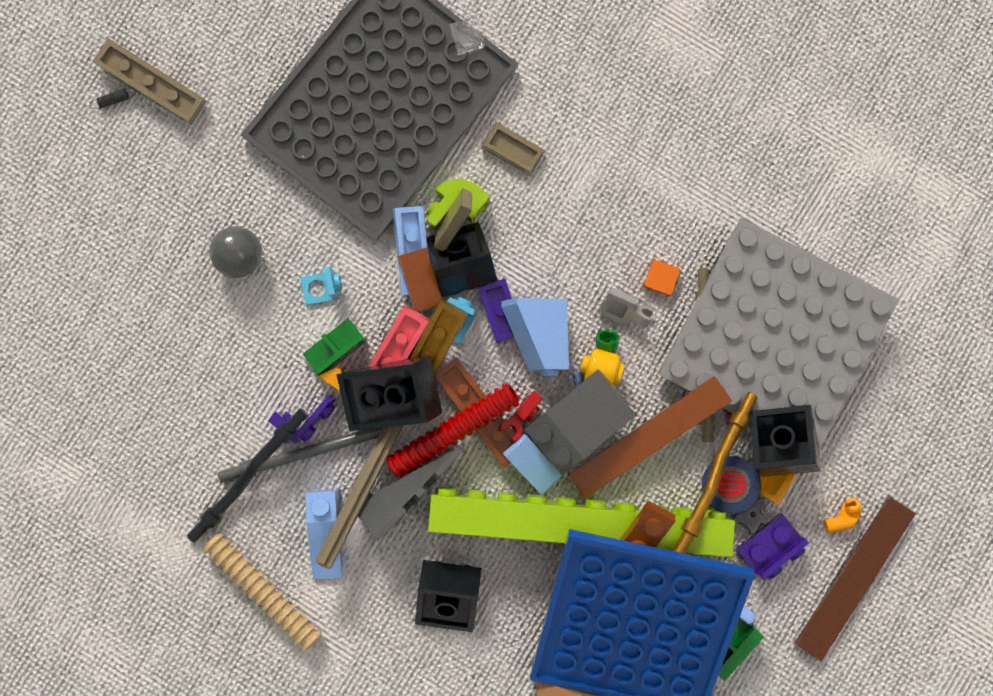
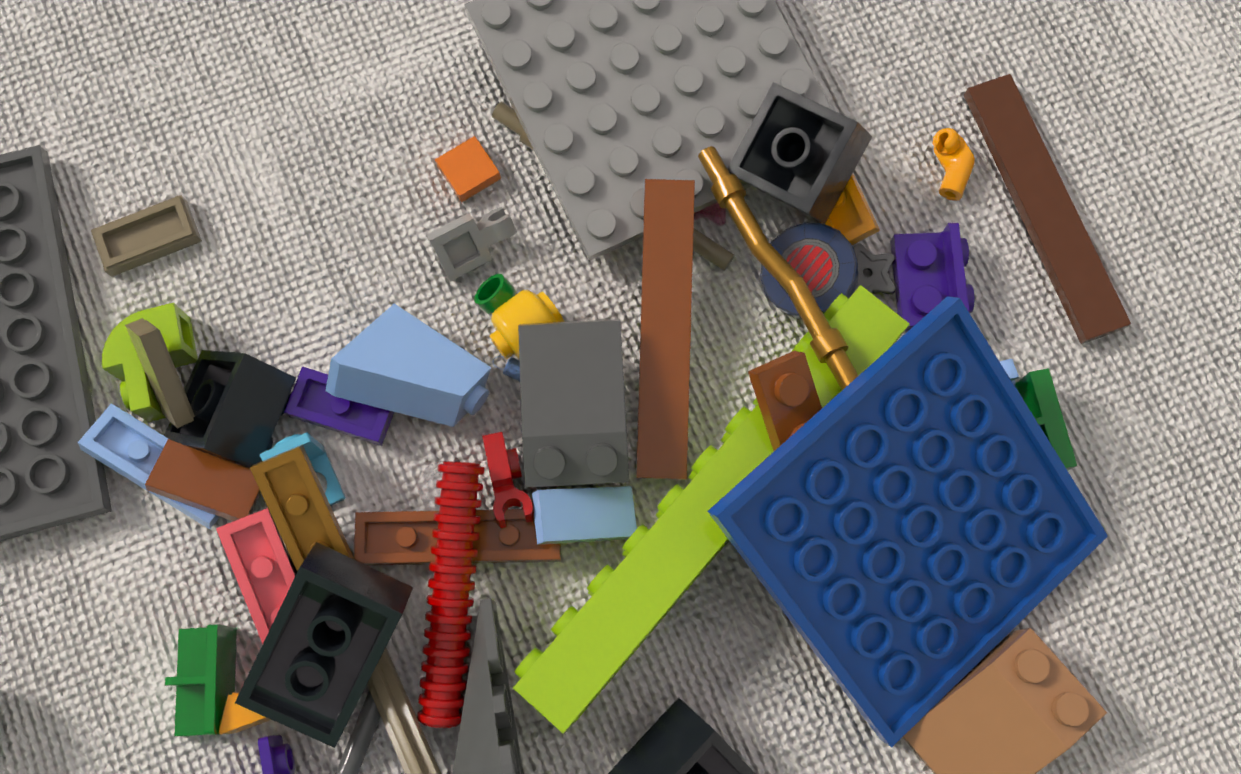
camera: 50 degrees left, 10 degrees down
(332, 283) = (106, 614): medium azure bracket -> none

